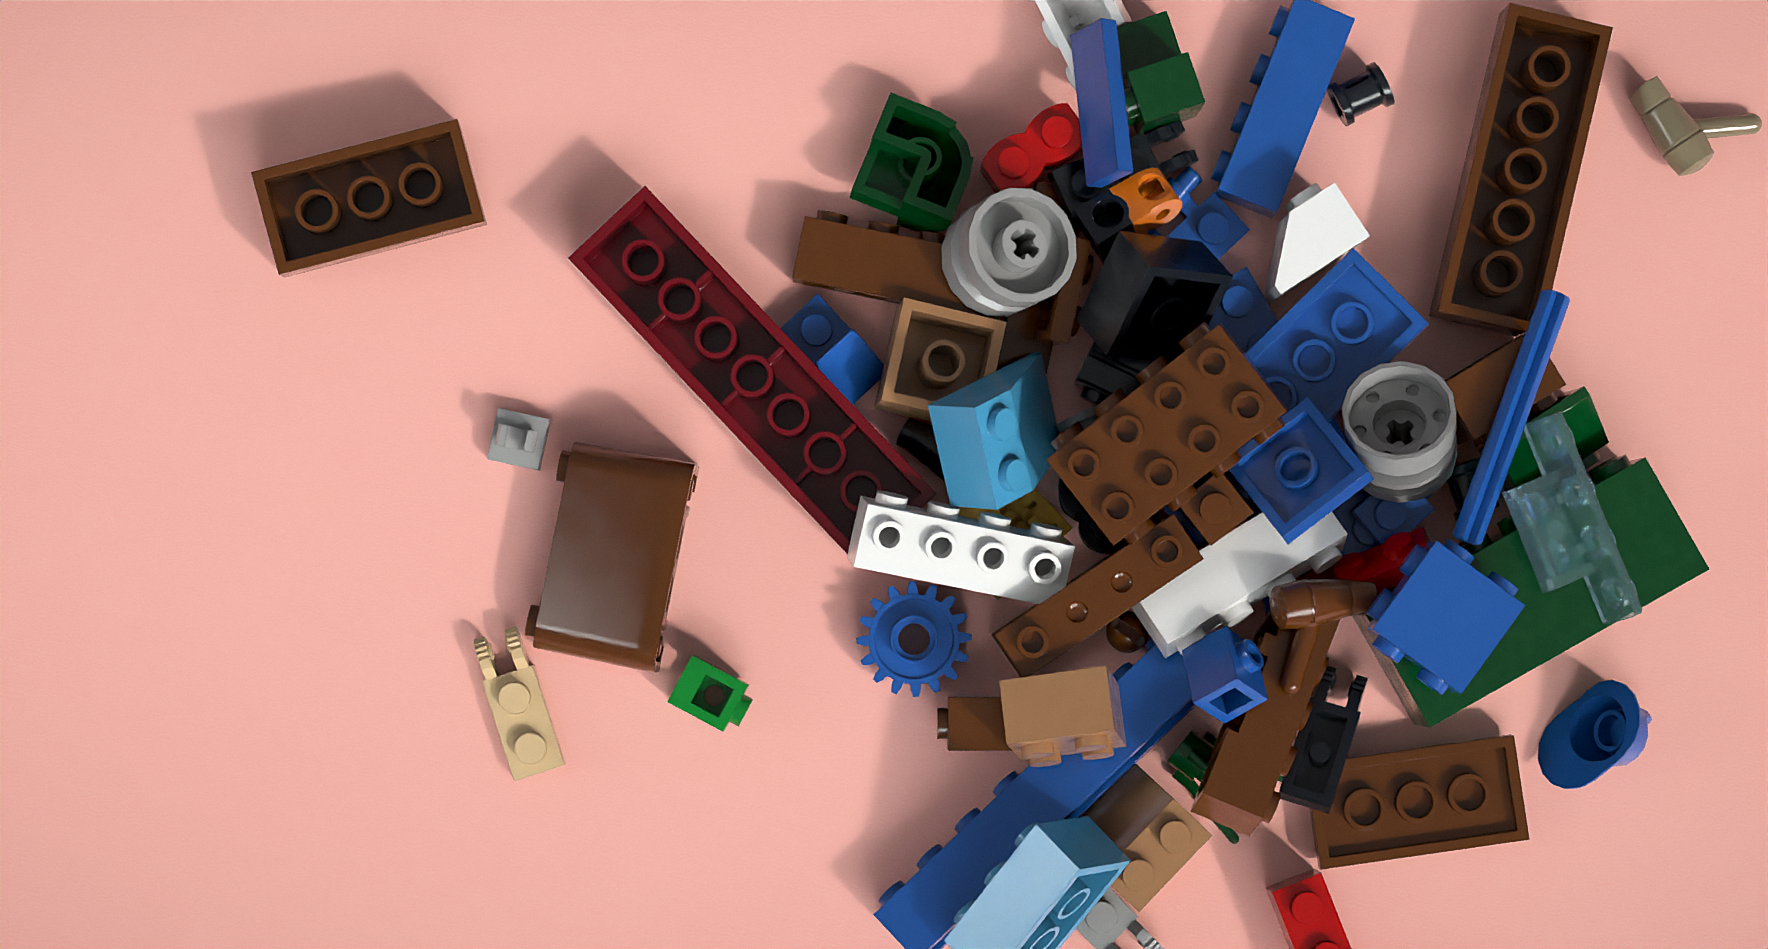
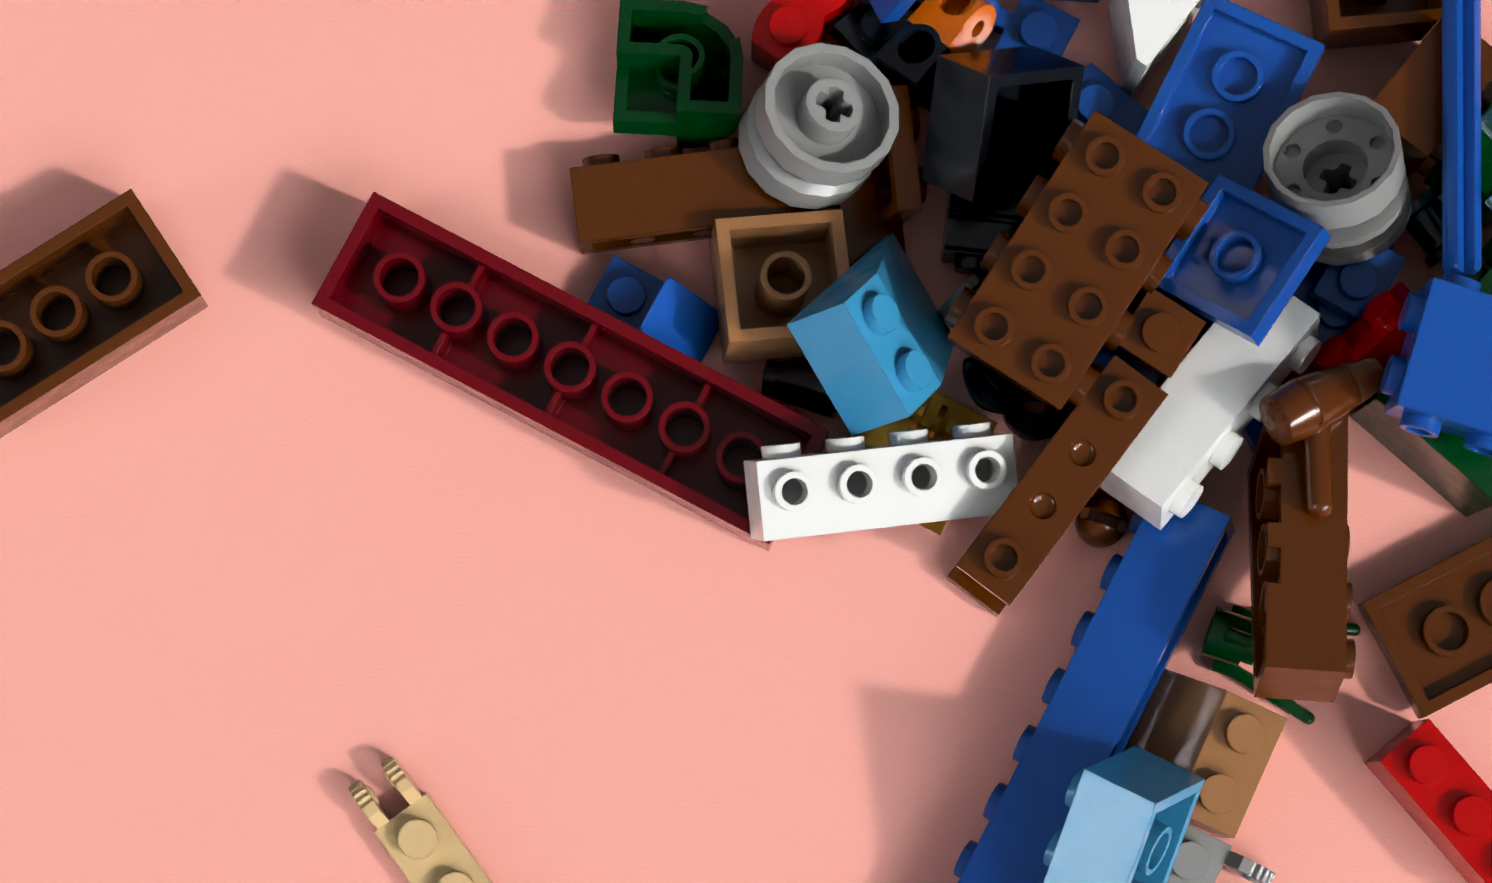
camera: 20 degrees left, 5 degrees down
(518, 439) = (324, 537): light grey tile -> none
(613, 556) = (478, 633): reddish brown windscreen -> none
(690, 691) = (621, 750): green brick -> none
(942, 645) = (866, 577): blue gear -> none
(972, 724) = (966, 684): reddish brown brick -> none
(1063, 715) = (1067, 634): medium nougat brick -> none
(1225, 674) = (1241, 519): blue brick -> none
(1323, 746) = (1379, 574): black hinge -> none

